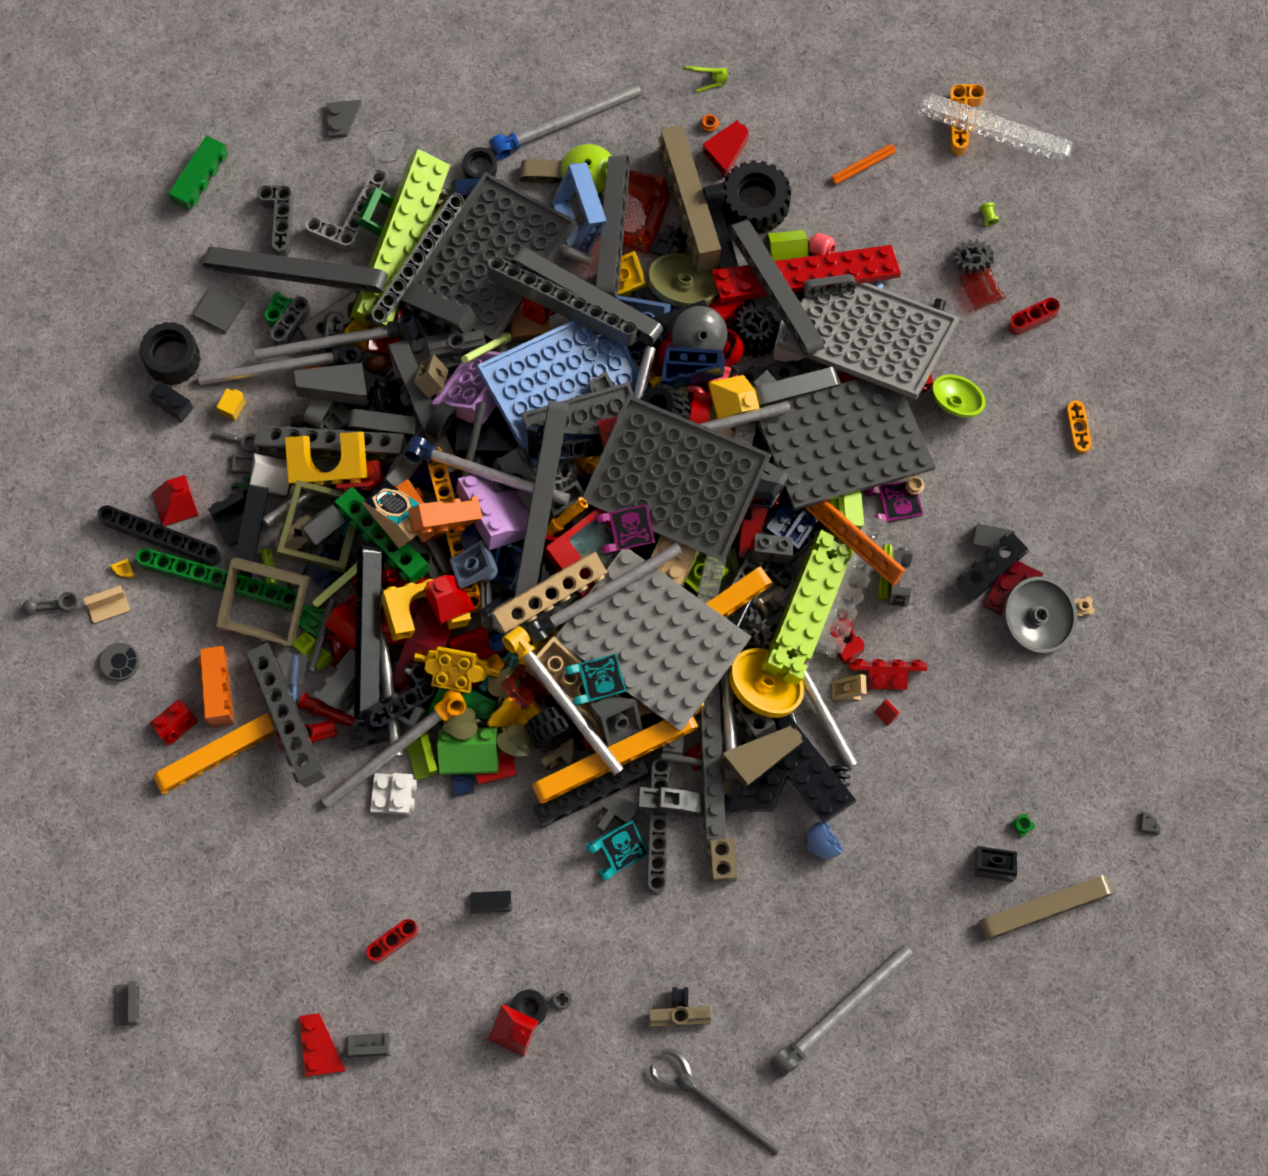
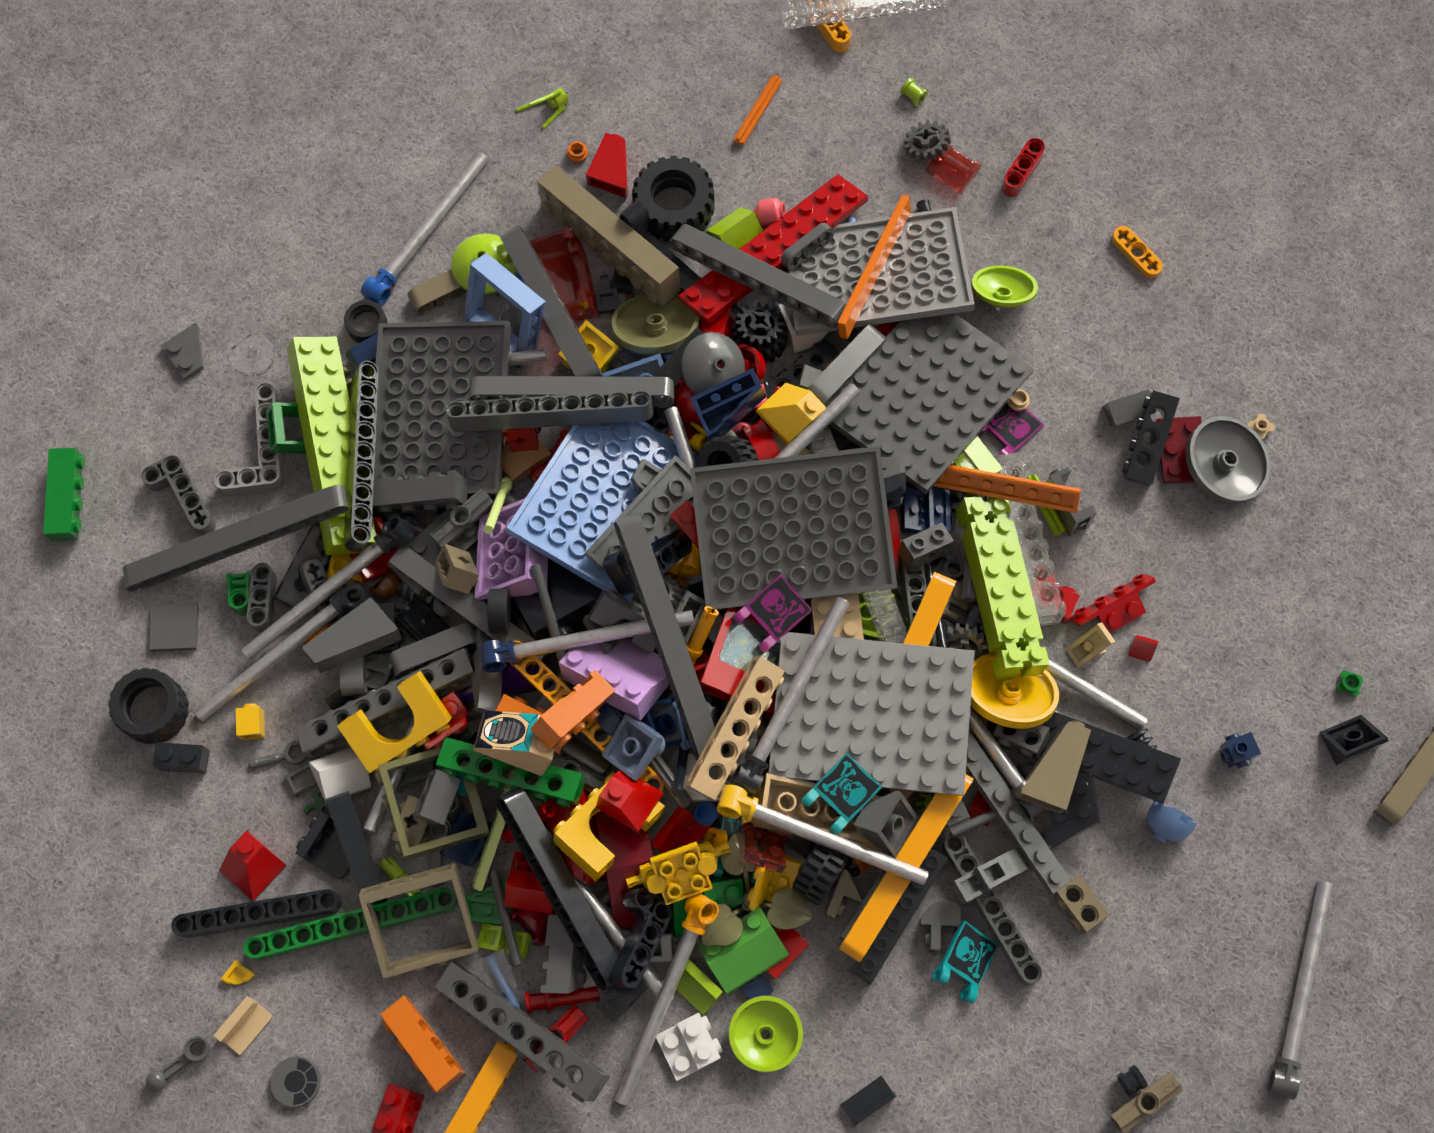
camera: 30 degrees left, 0 degrees up
(445, 802) = (760, 1015): none -> lime dish
(865, 327) = (874, 267): none -> orange tile
(913, 819) = (1239, 750): none -> dark blue brick

